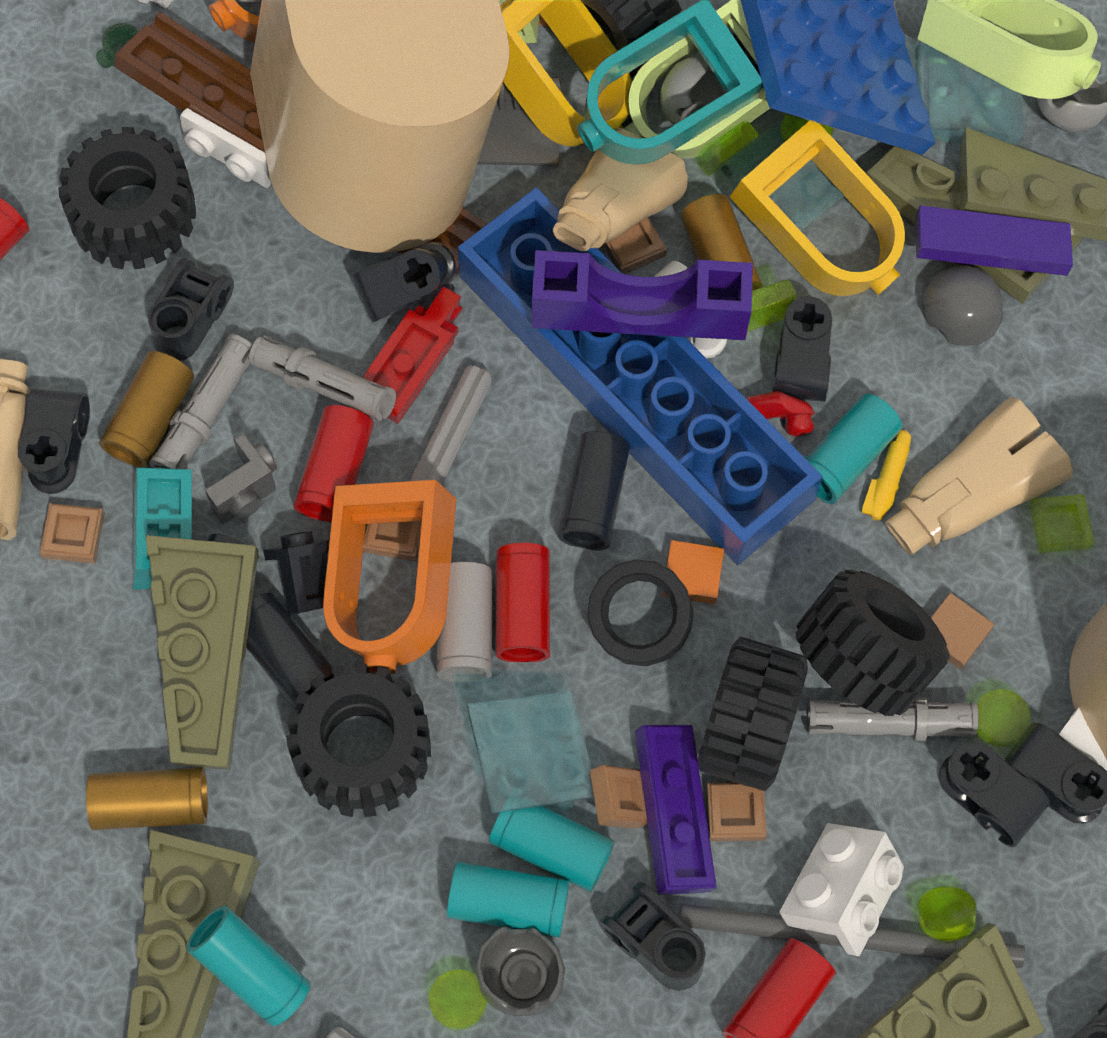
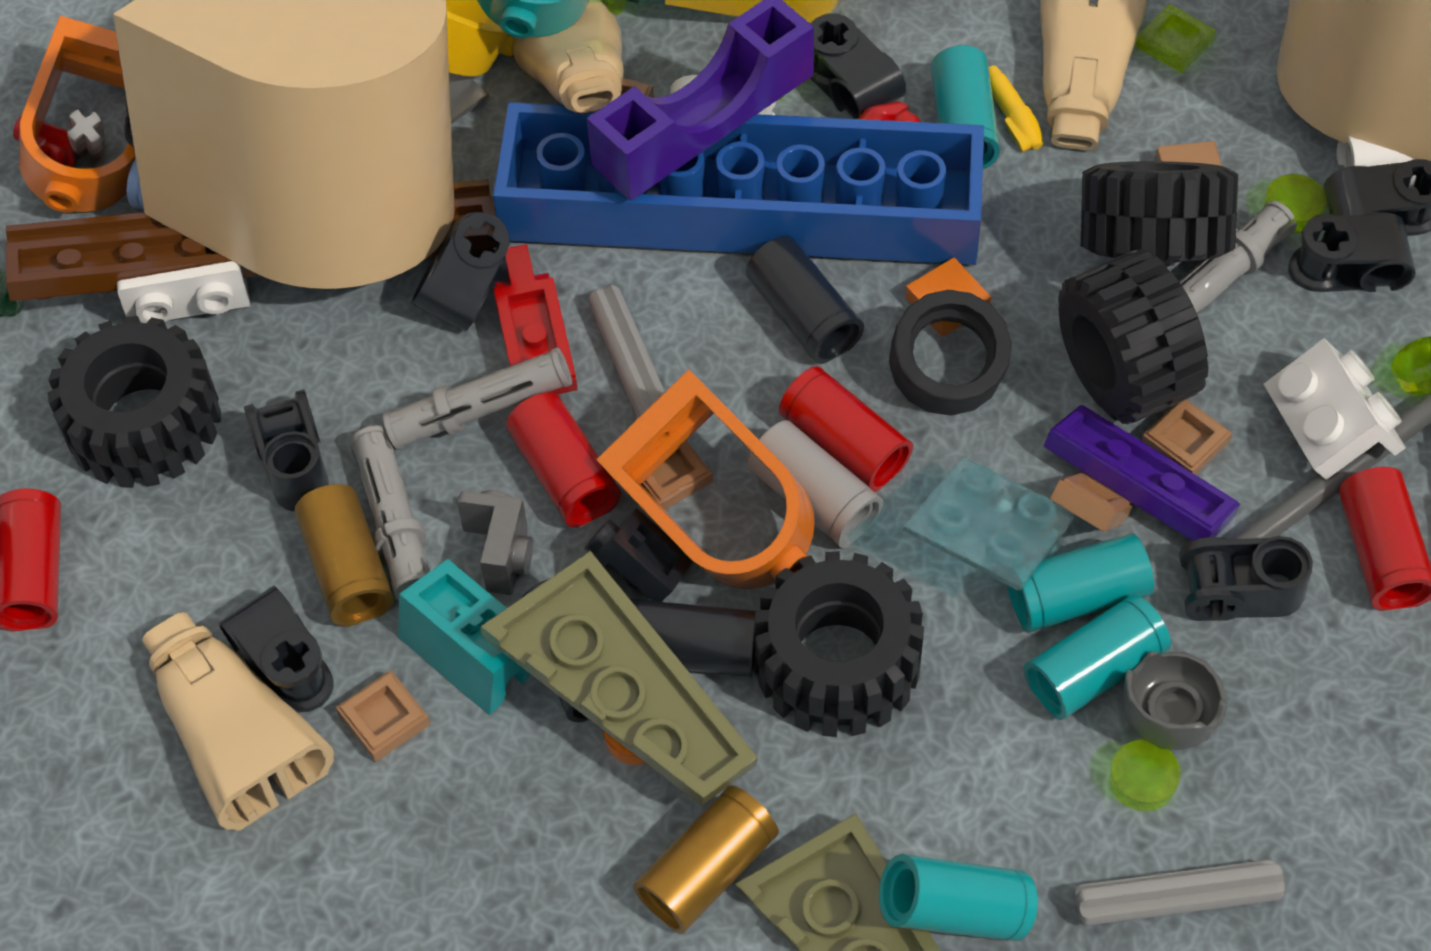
camera: 40 degrees left, 10 degrees down
(716, 232) = (678, 40): pearl gold pin -> none

